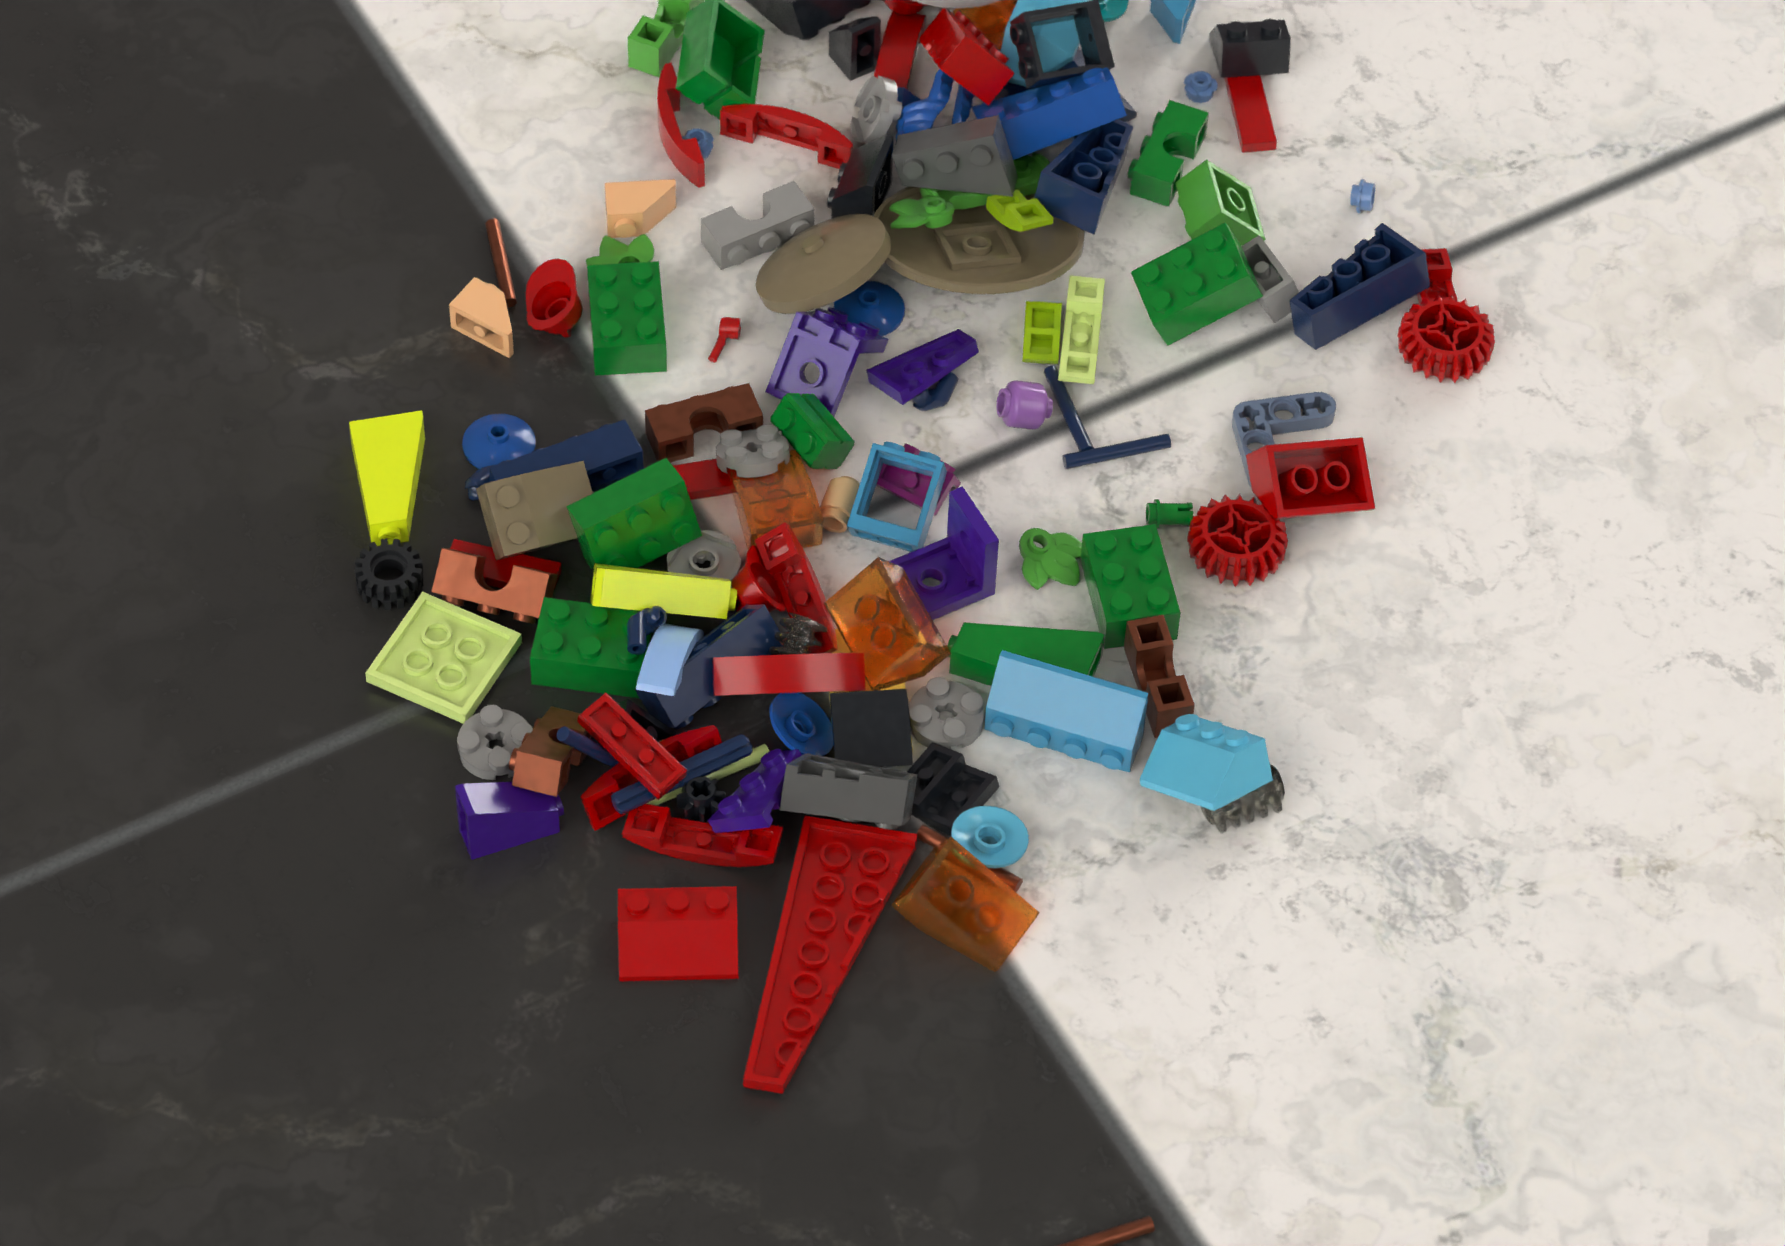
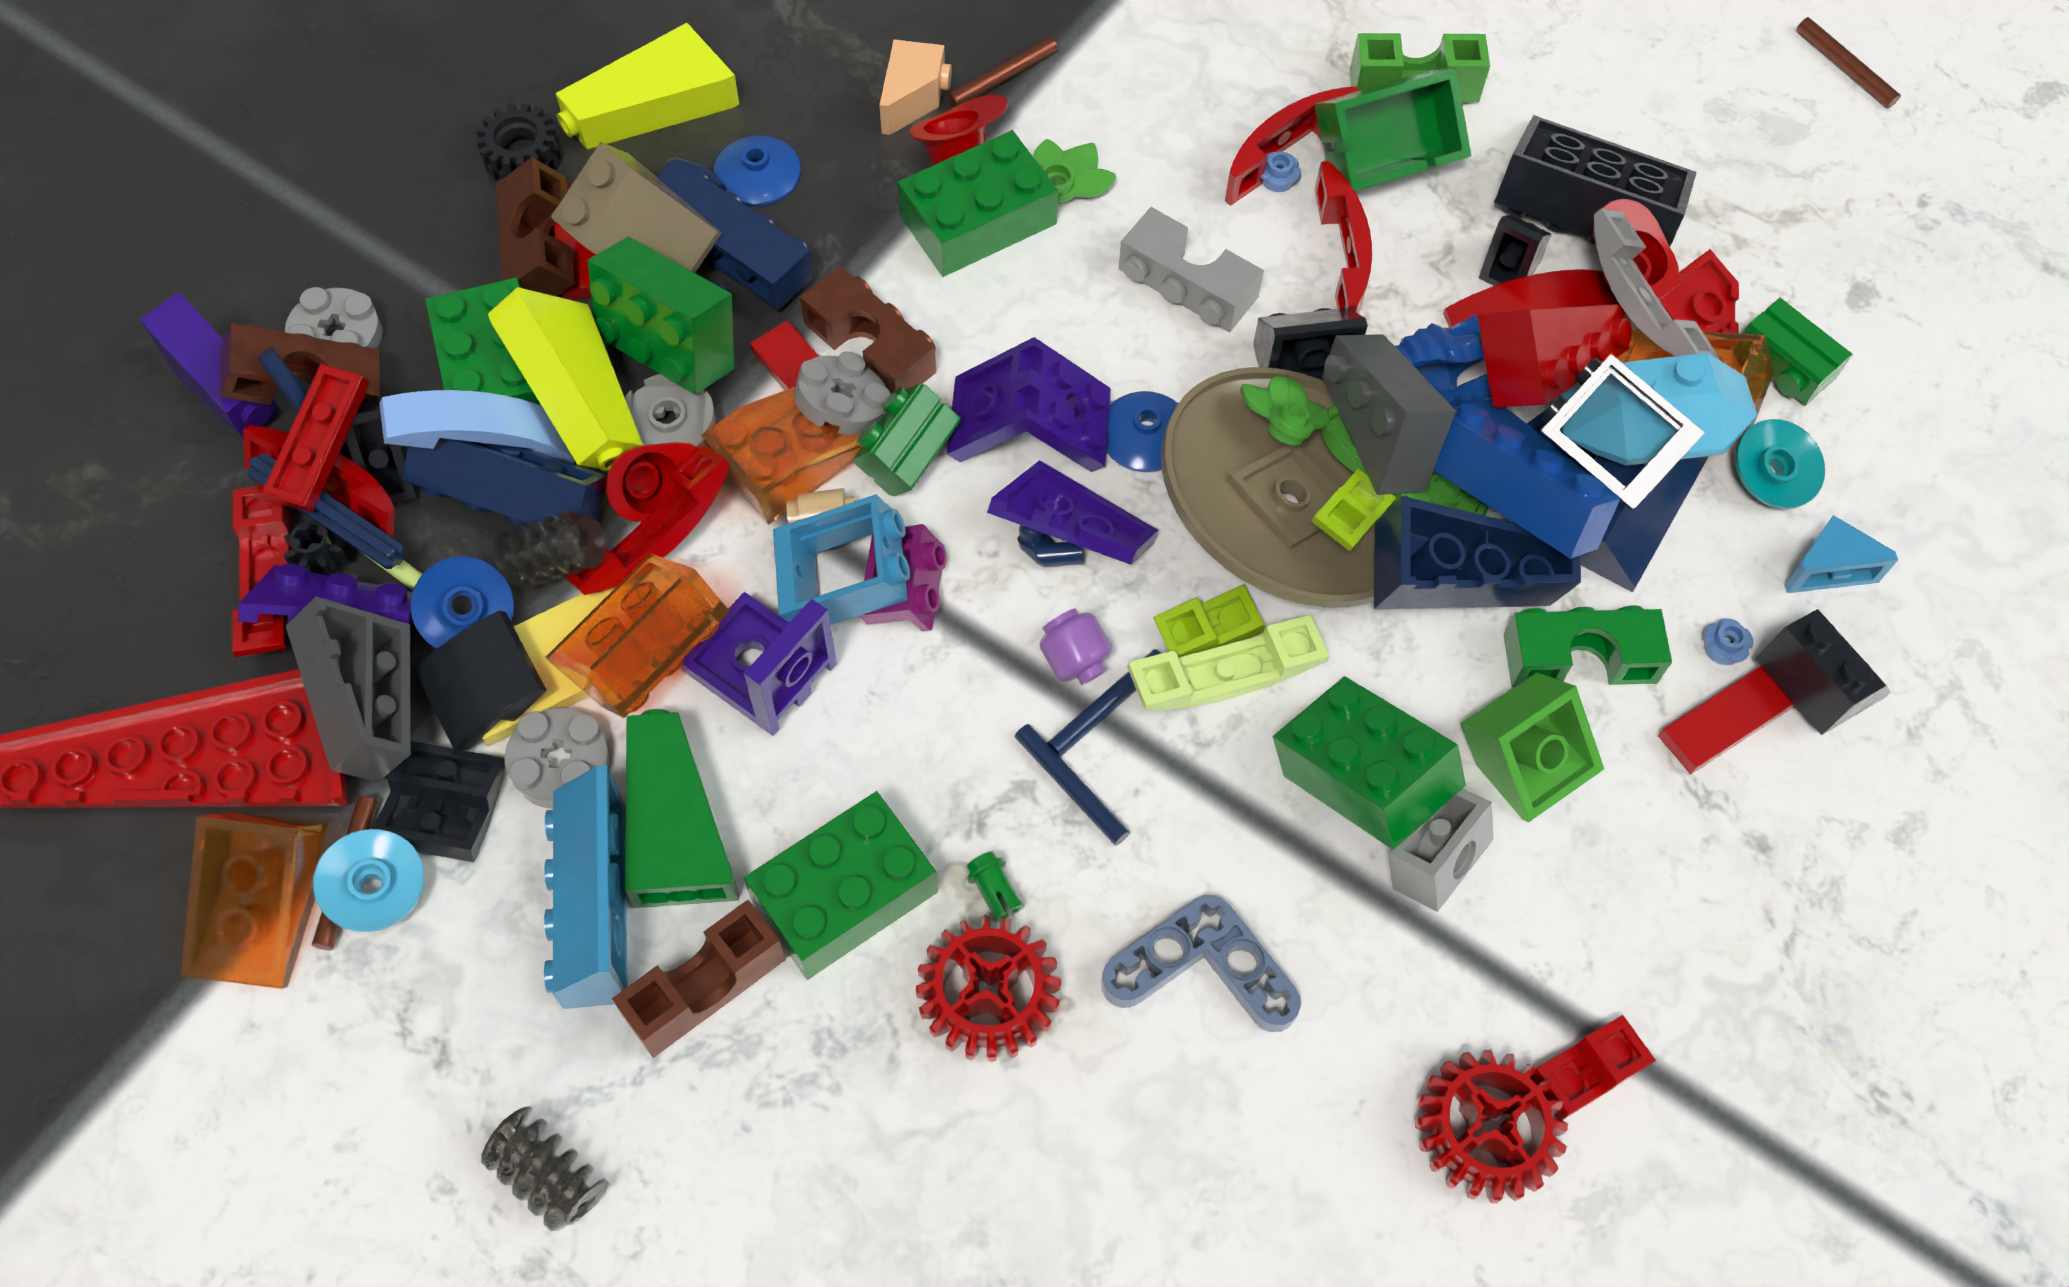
camera: 65 degrees right, 10 degrees up
(443, 657) = (424, 235): yellowish green plate -> none
(637, 206) = (1145, 150): light nougat slope -> none
(642, 625) = (495, 376): dark blue arm -> none
(677, 933) = (112, 604): red slope -> none
(728, 328) = (1025, 303): red hand -> none
(788, 673) = (505, 565): red slope -> none
(823, 263) = (1150, 345): dark tan dish -> none
(877, 109) = (1427, 308): light grey plate -> none
(1053, 561) = (852, 779): bright green plate -> none
(1206, 762) = (545, 1099): medium azure slope -> none
(1312, 478) = (1122, 1043): red slope -> none
(1359, 288) = (1498, 971): dark blue wedge -> none
(1363, 196) = (1677, 914): medium blue plate -> none

